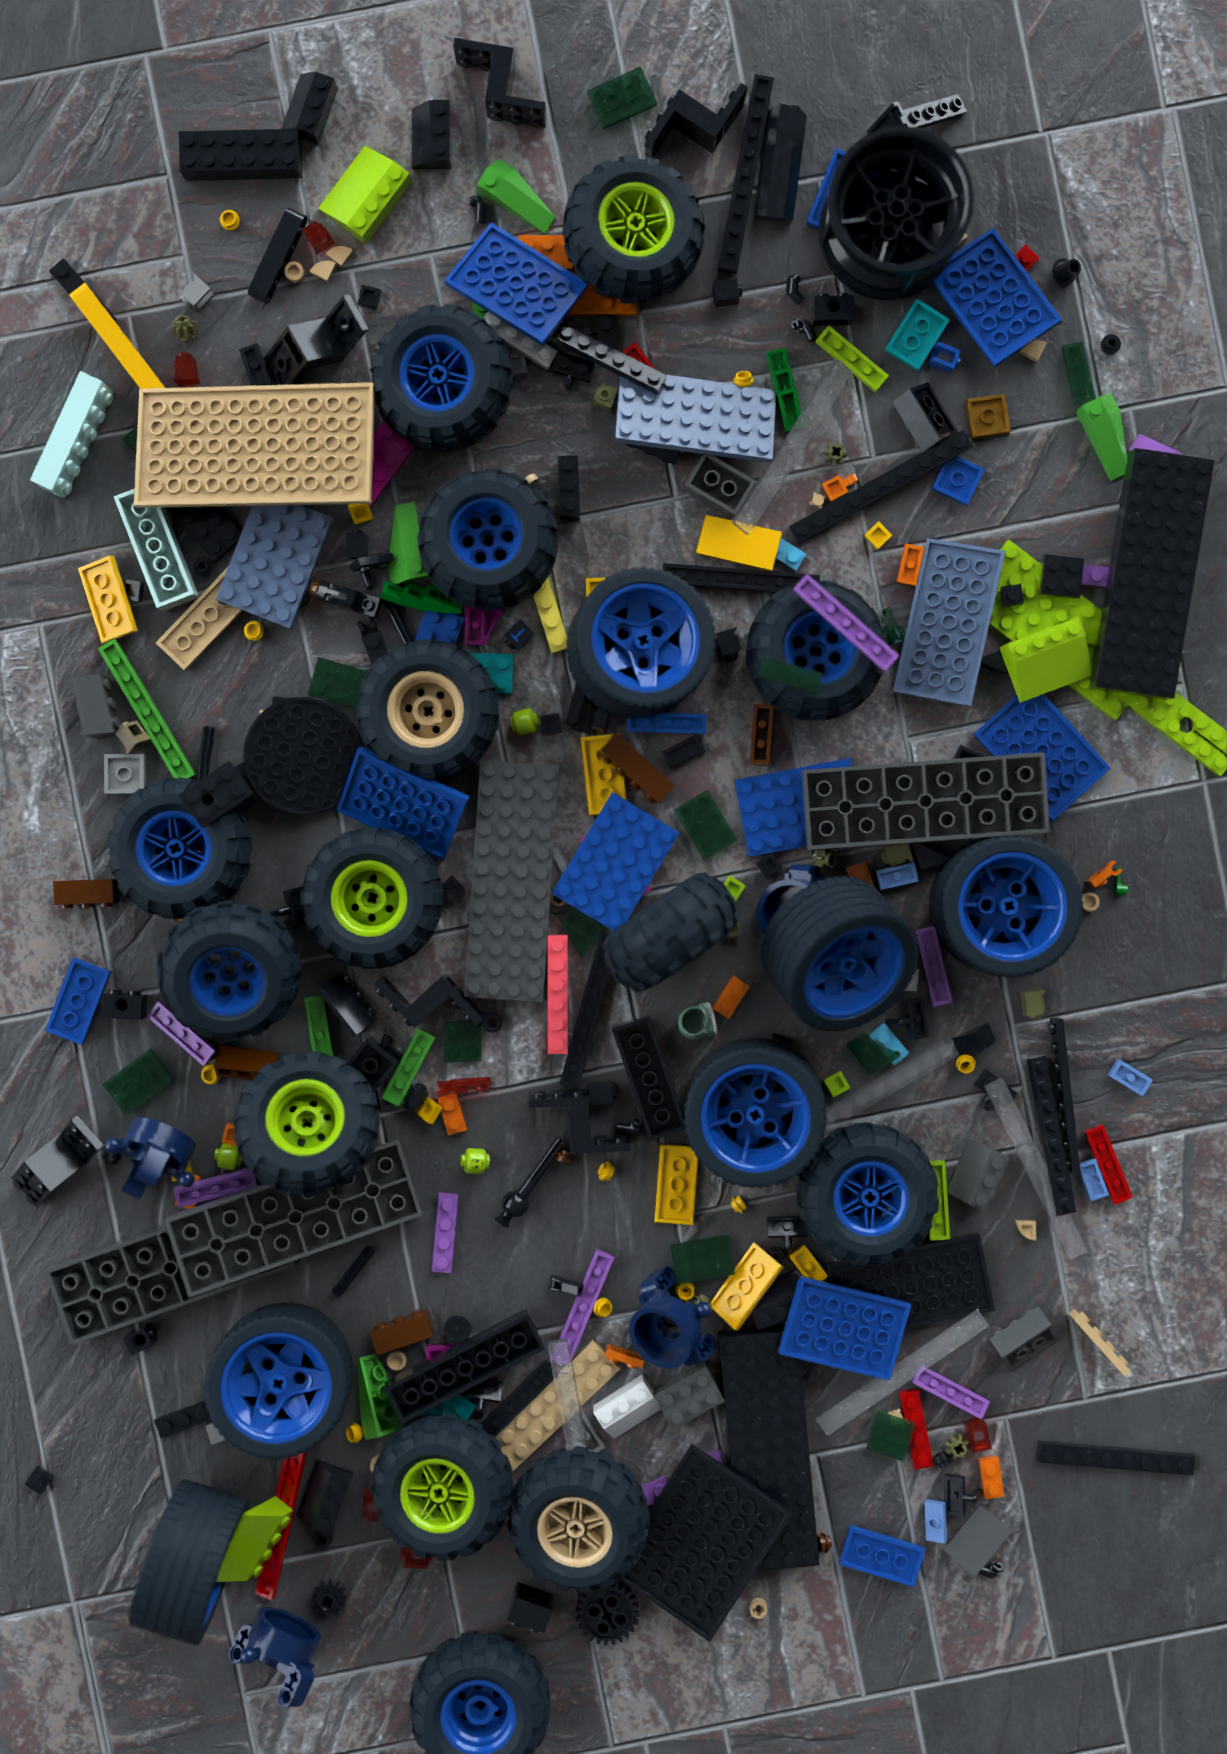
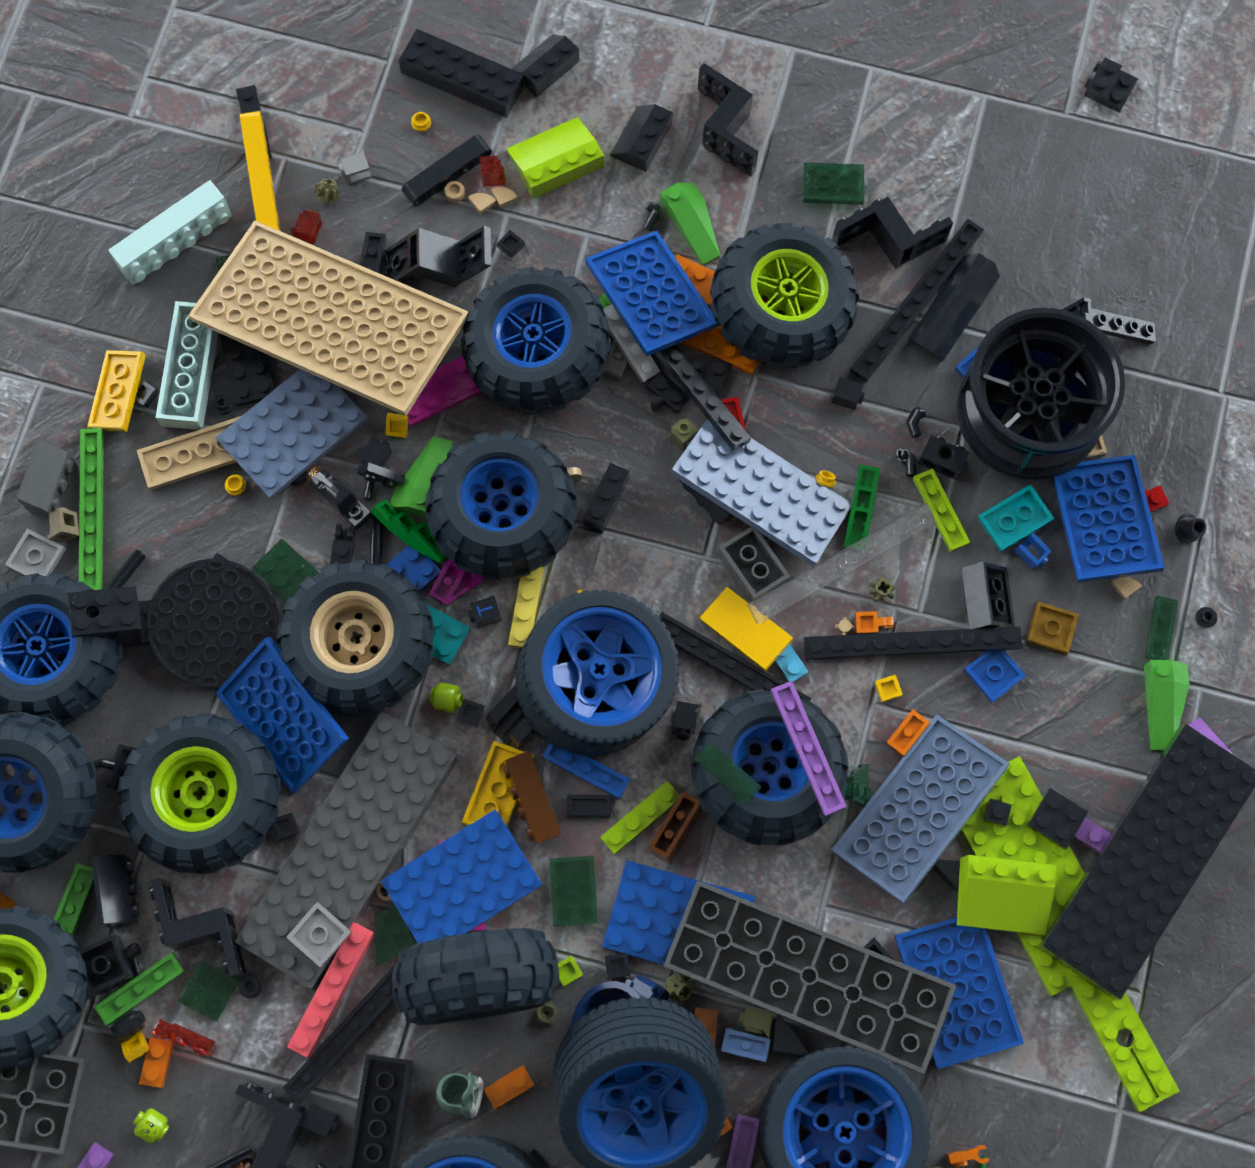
camera: 25 degrees right, 15 degrees down
(528, 959) = (319, 934): none -> light grey plate
(729, 740) = (640, 817): none -> lime plate

